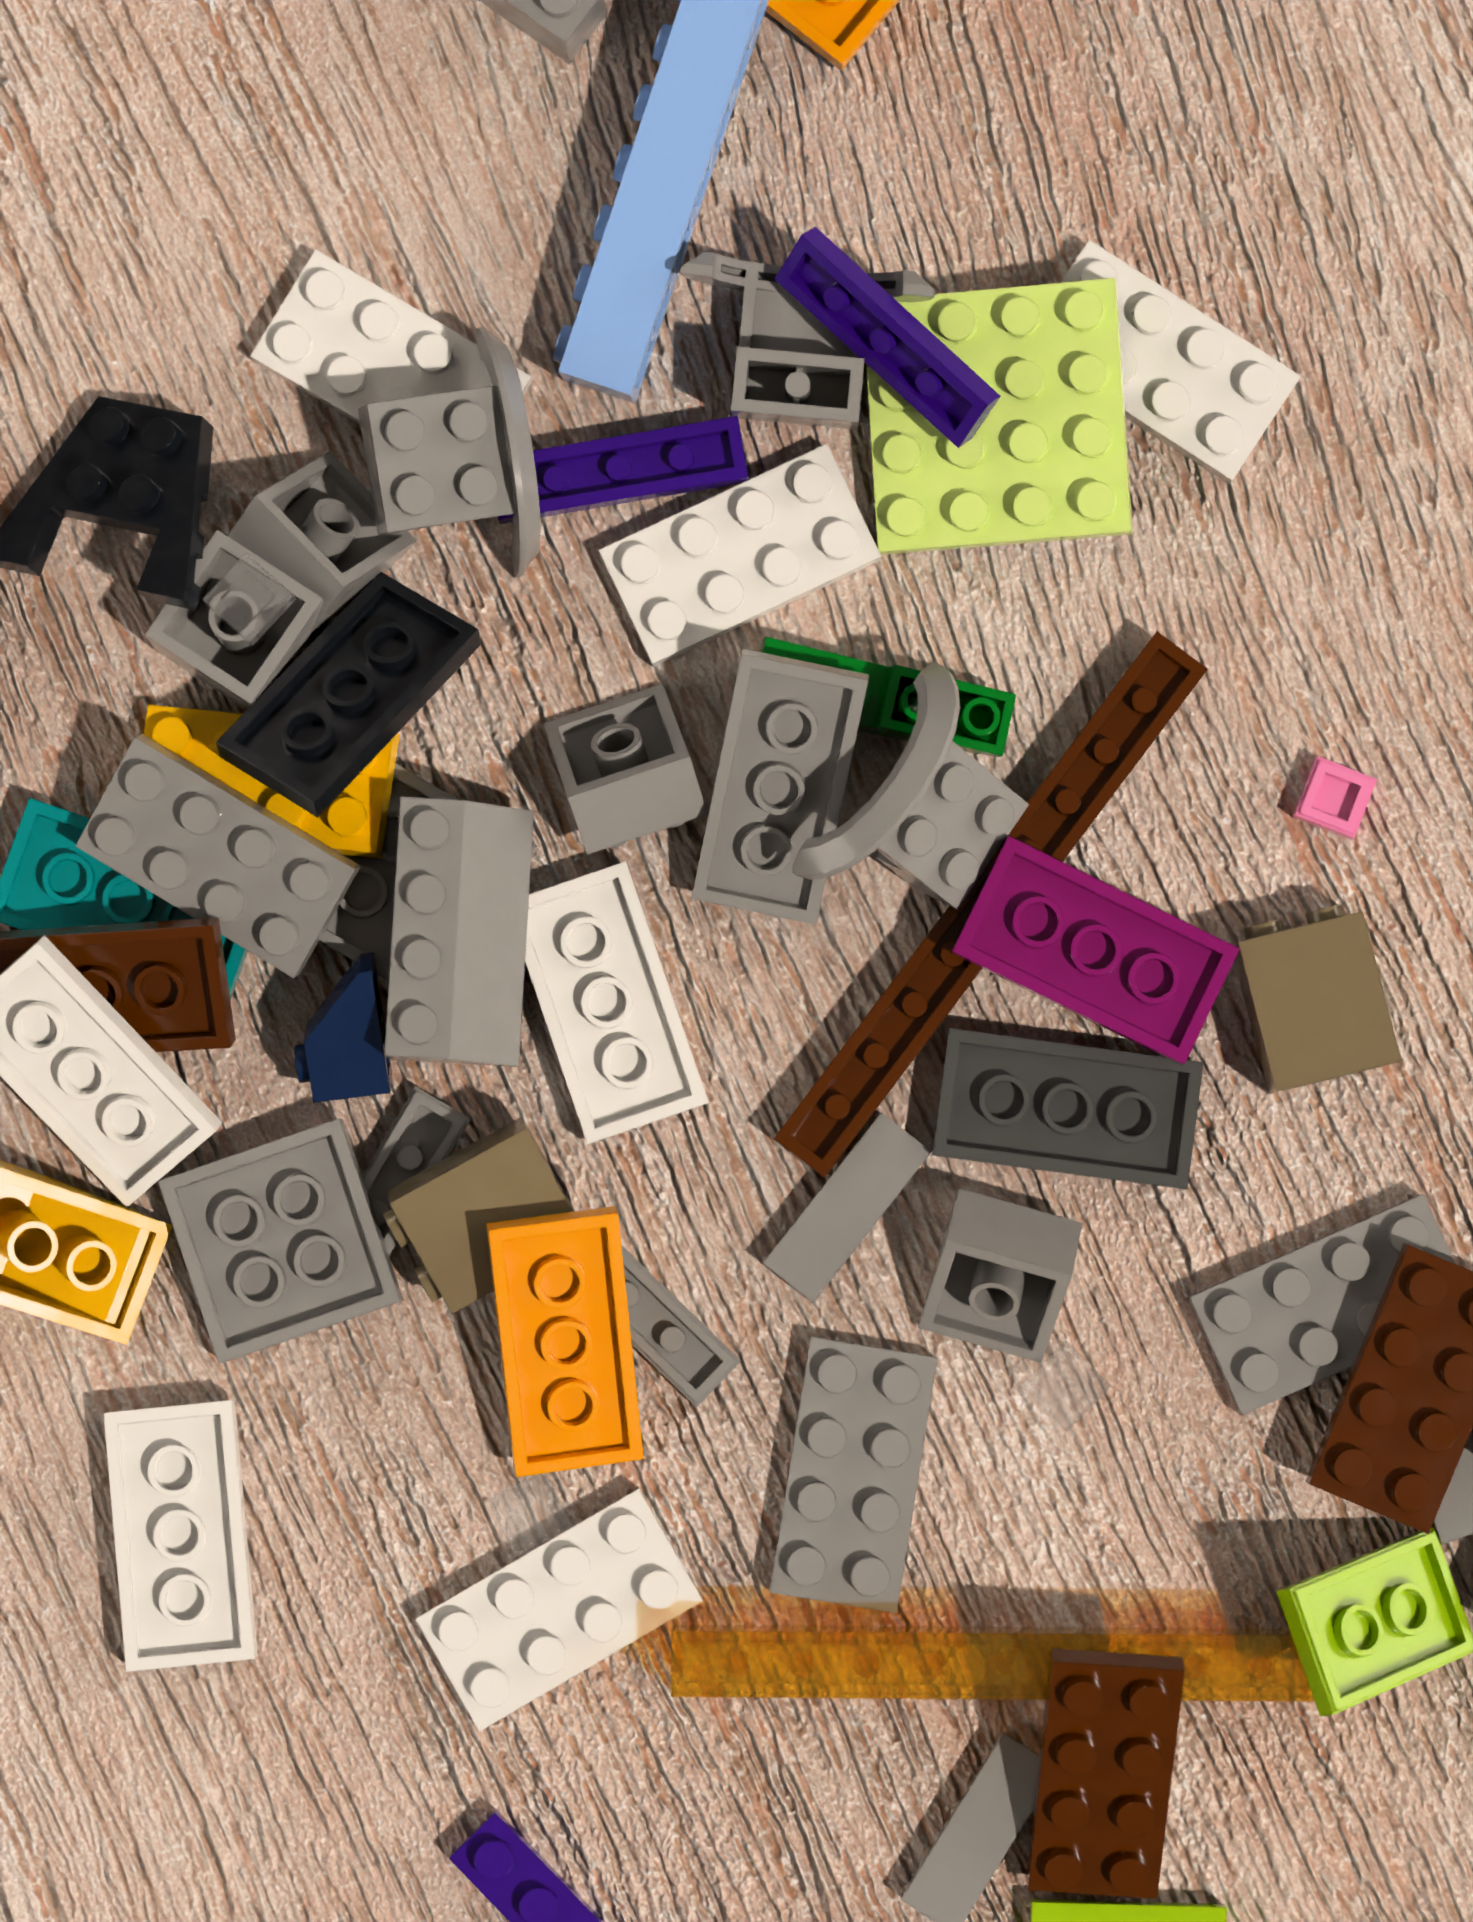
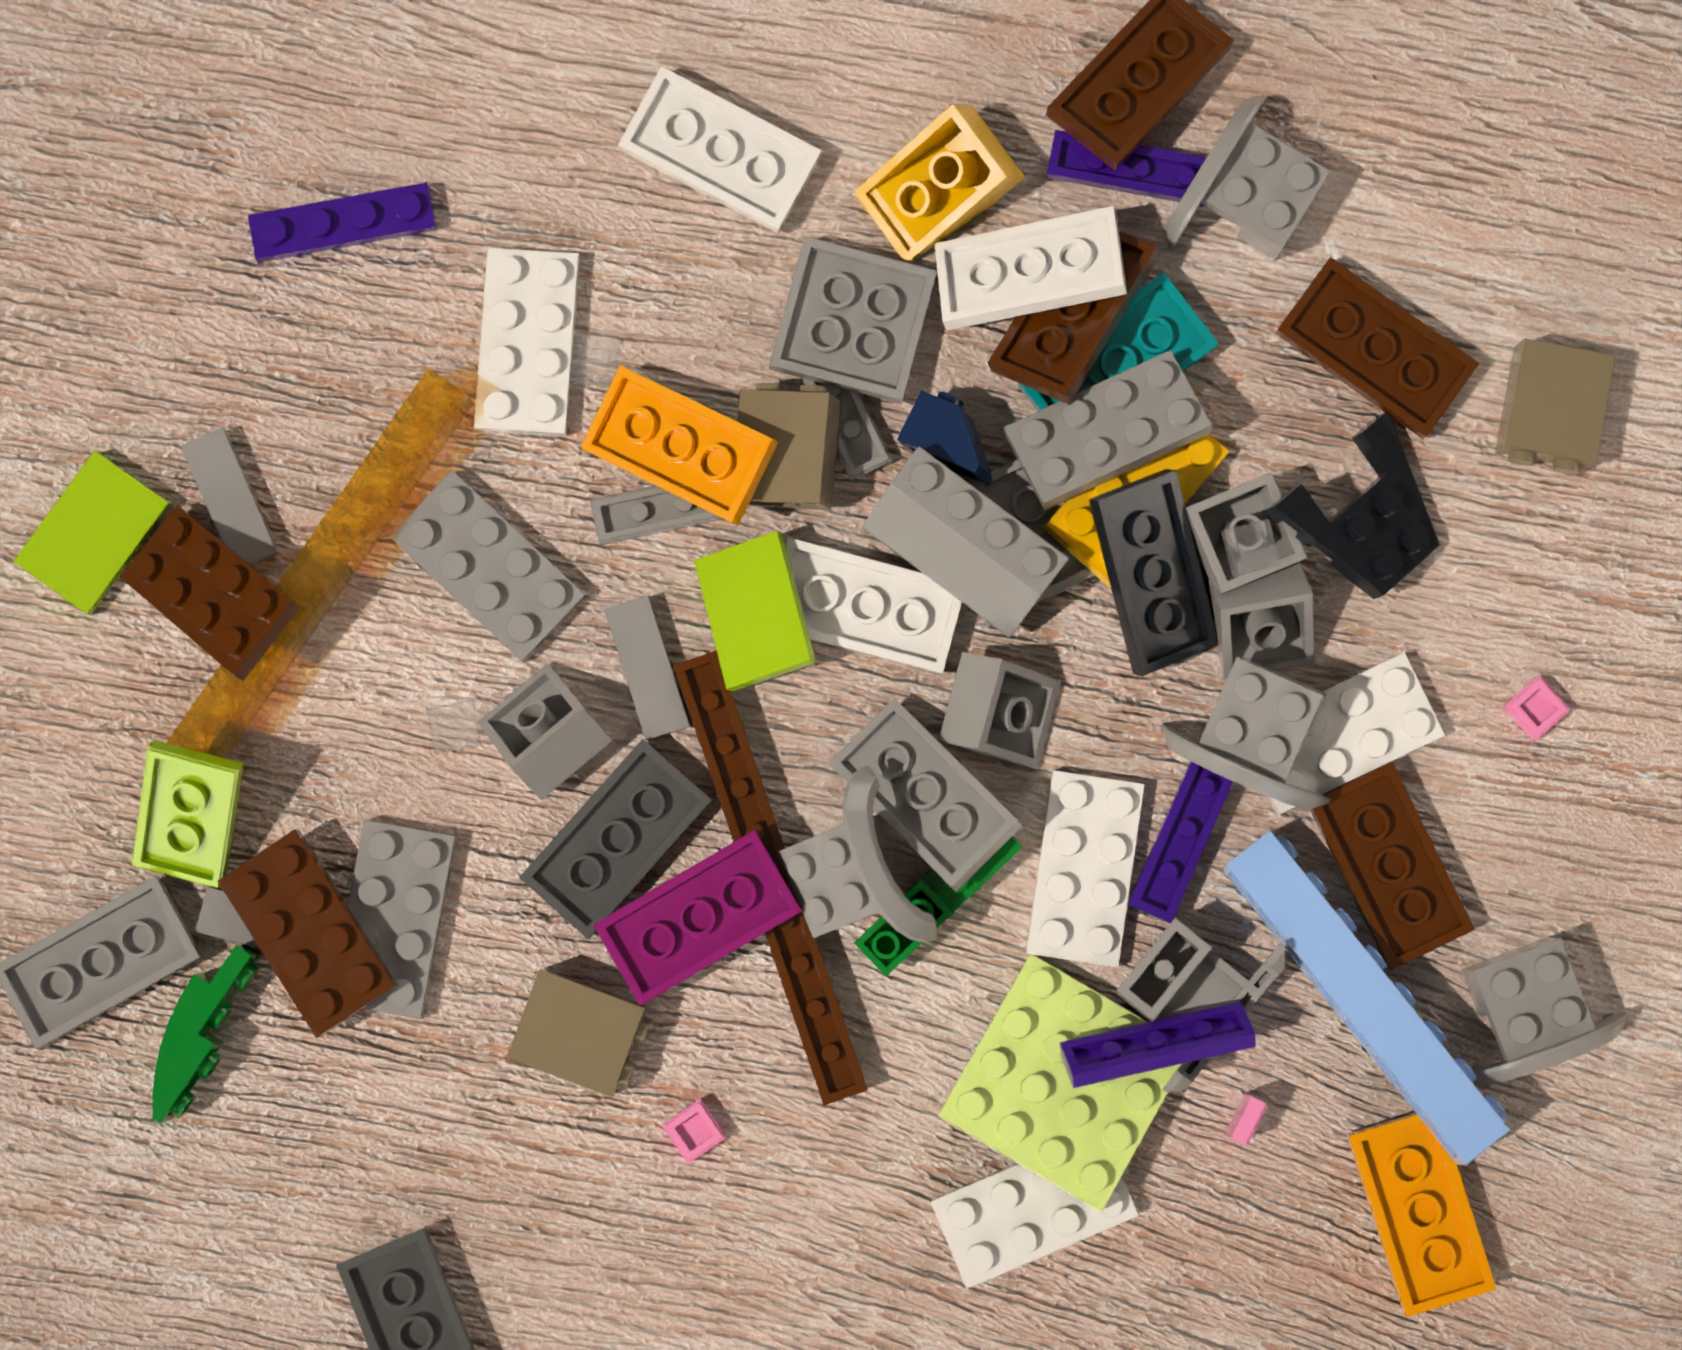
camera: 120 degrees right, 0 degrees up
(214, 169) = (1536, 708): none -> bright pink tile
(506, 213) = (1391, 866): none -> reddish brown plate
(699, 1124) = (754, 611): none -> lime tile
(901, 190) = (1246, 1119): none -> bright pink tile

